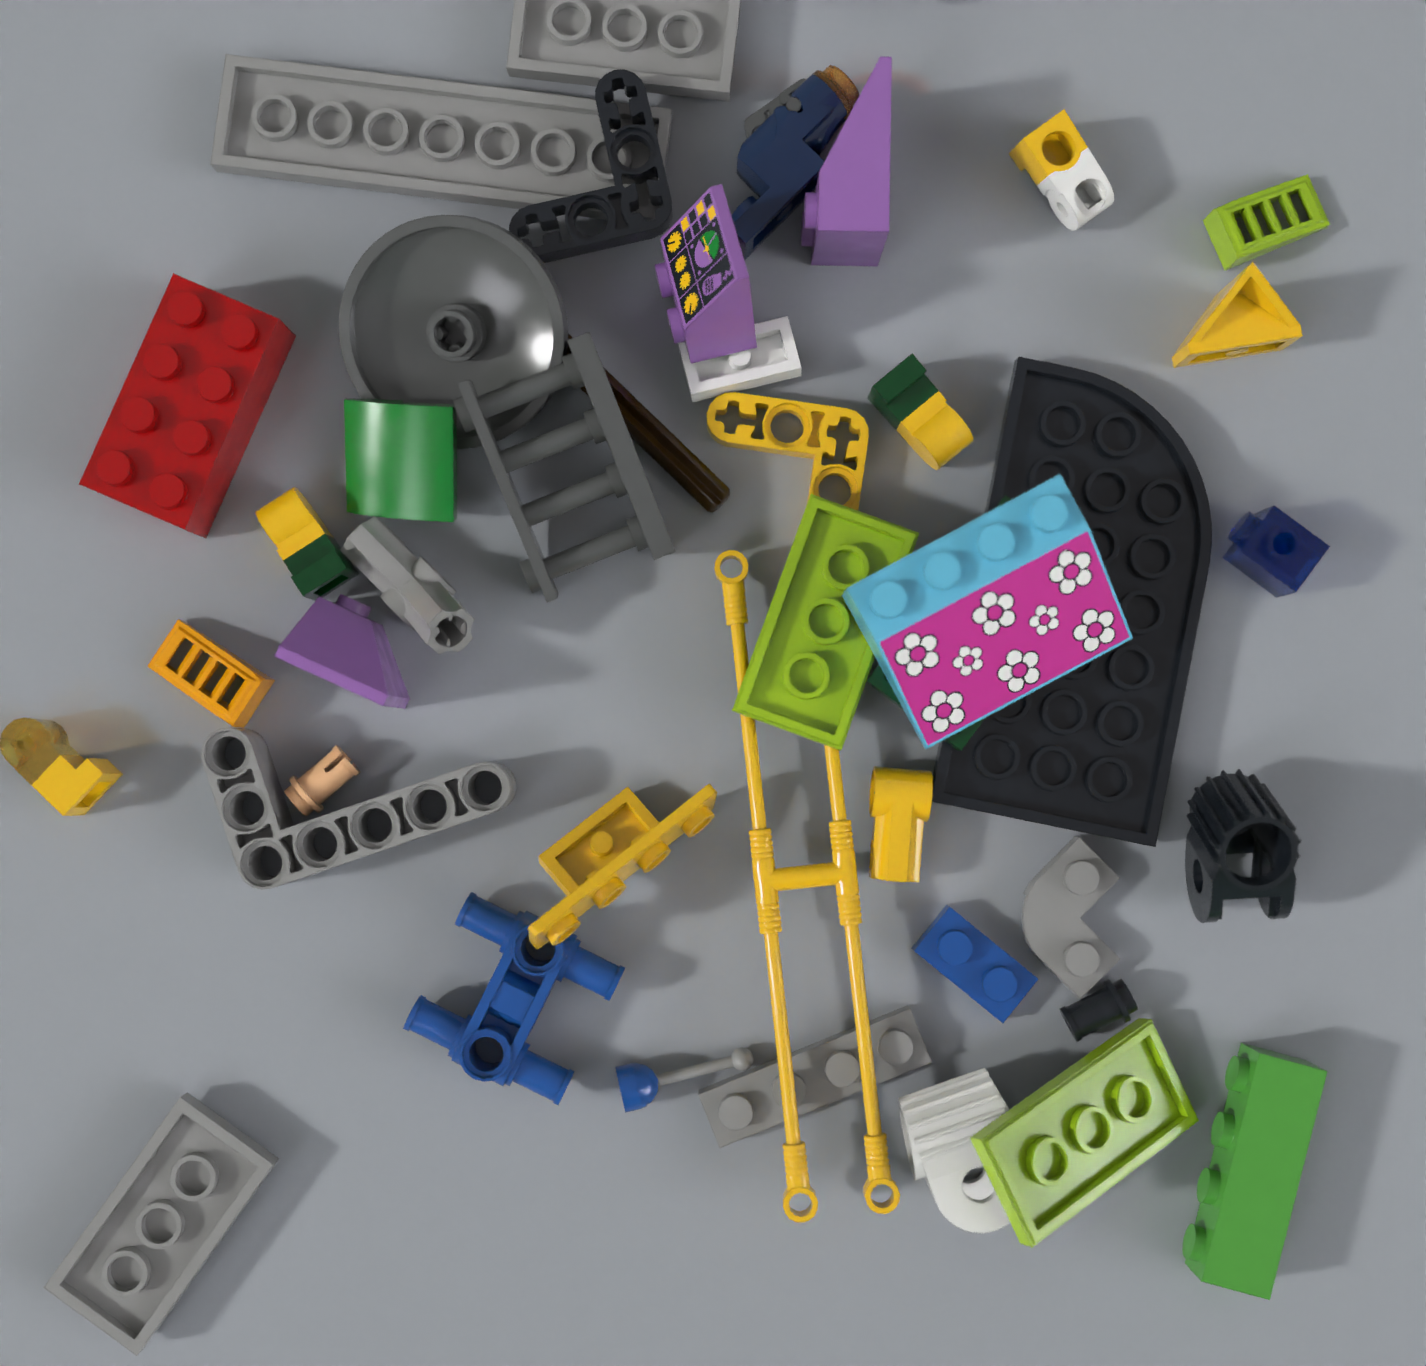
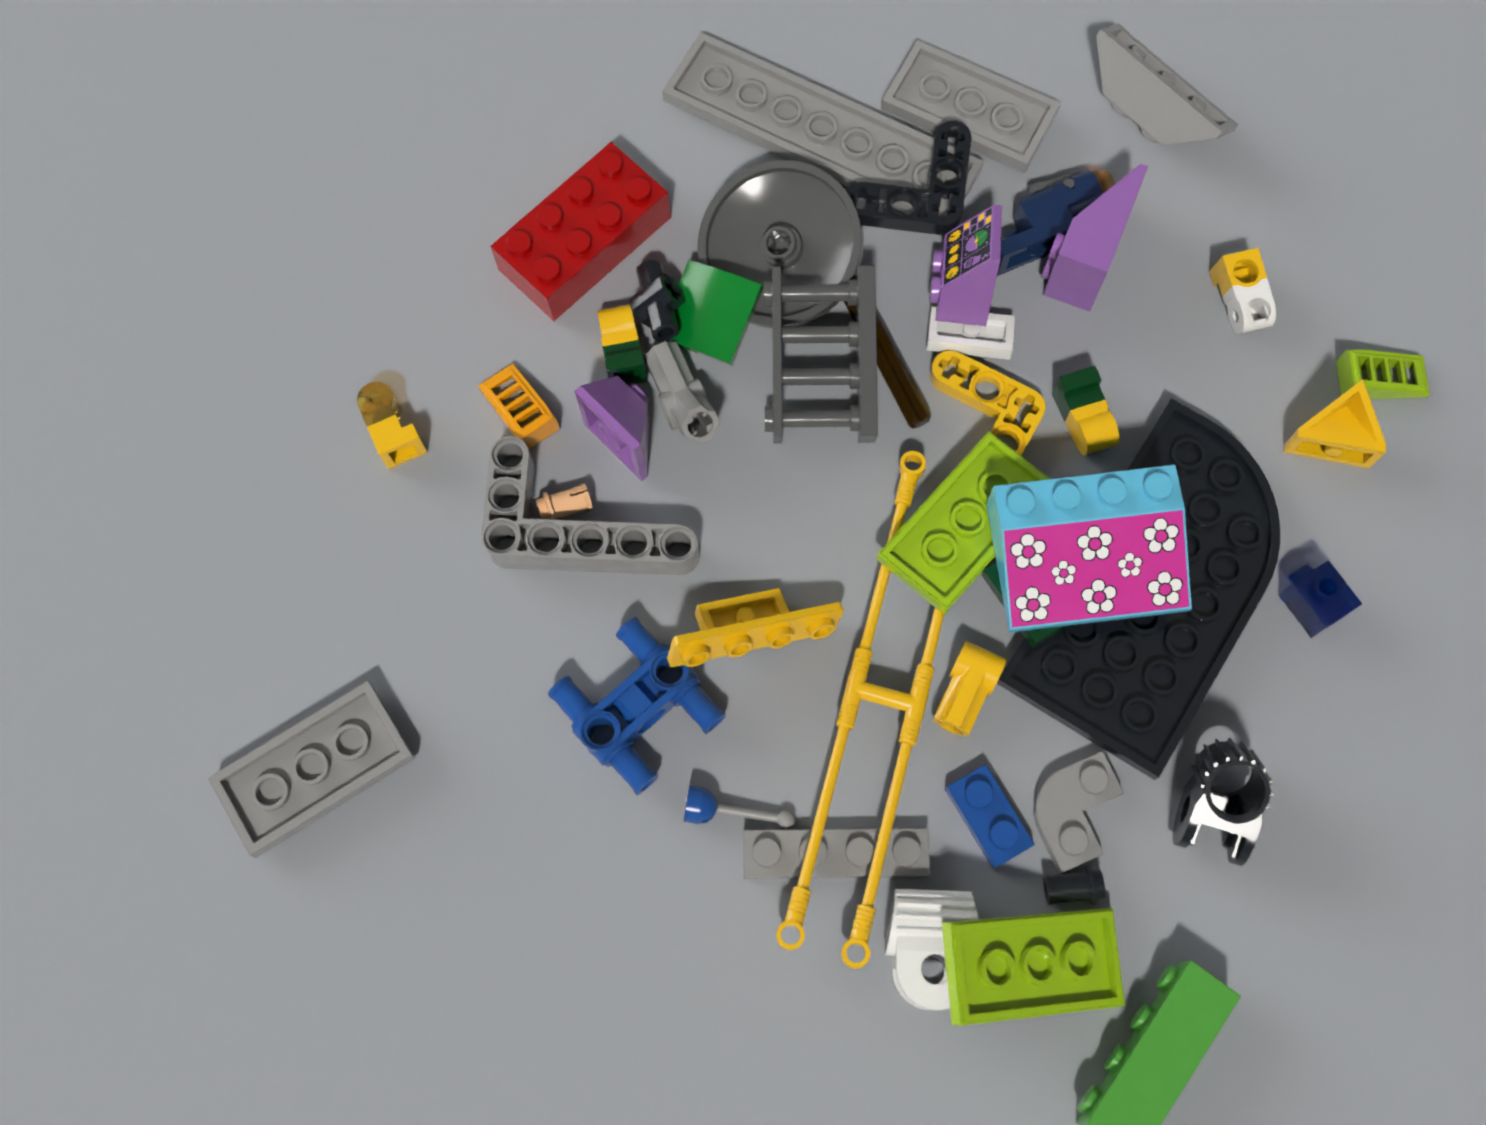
camera: 25 degrees right, 15 degrees down
(326, 470) = (657, 300): none -> black axle

